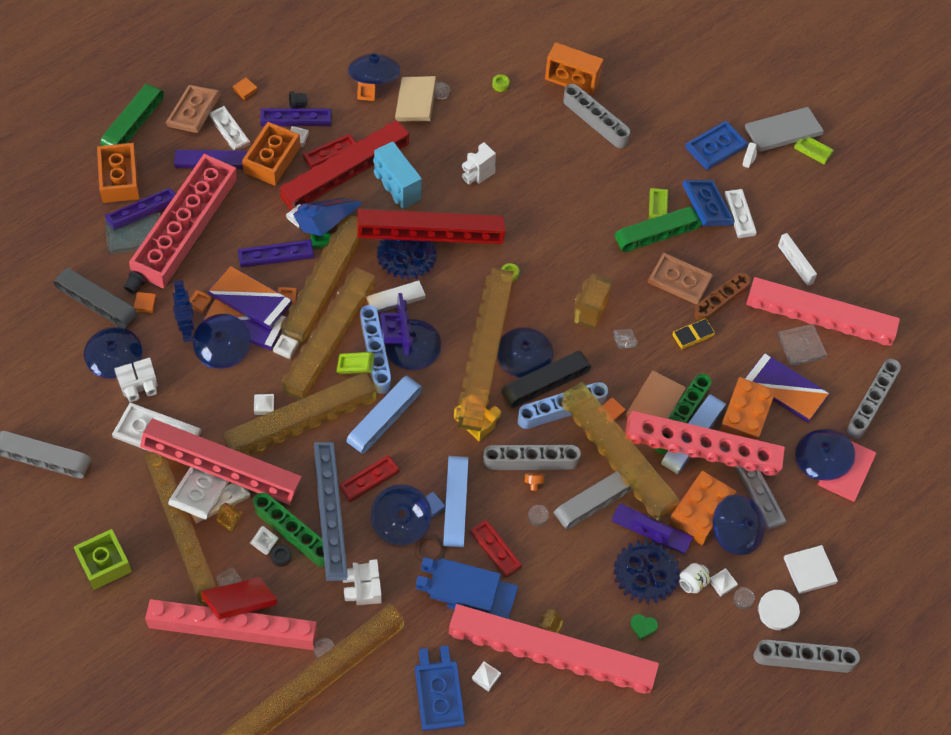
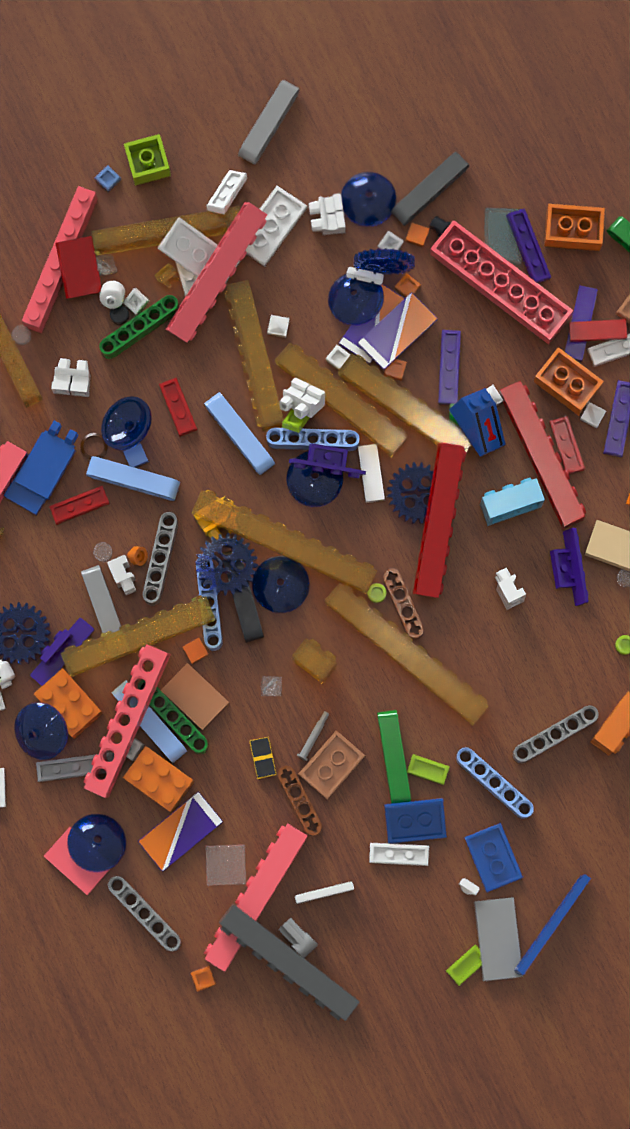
camera: 110 degrees right, 20 degrees up
(128, 472) = (226, 192): none -> white tile
(128, 601) = (108, 178): none -> medium blue tile
(159, 322) = (390, 241): none -> white tile
(199, 330) = (364, 275): none -> white axle
(217, 140) = (597, 330): none -> red tile
(262, 561) = (112, 294): none -> white head
(330, 512) = (147, 361): sand blue tile -> none
(338, 360) = (302, 398): none -> white hips
(443, 128) = (568, 567): none -> dark purple bracket
(514, 249) = (401, 604): none -> dark orange beam
(538, 397) = (239, 553): none -> clear blue gear
(558, 486) = (121, 577): none -> white hips
(559, 238) = (406, 654): none -> clear yellow brick
(653, 152) = (497, 792): none -> light blue beam
(660, 297) = (313, 736): none -> light grey piece
(759, 90) = (552, 924): none -> blue tile
(845, 270) = (301, 941): none -> light grey piece
(870, 271) = (289, 962): none -> dark grey brick
(909, 342) = (203, 978): none -> orange tile

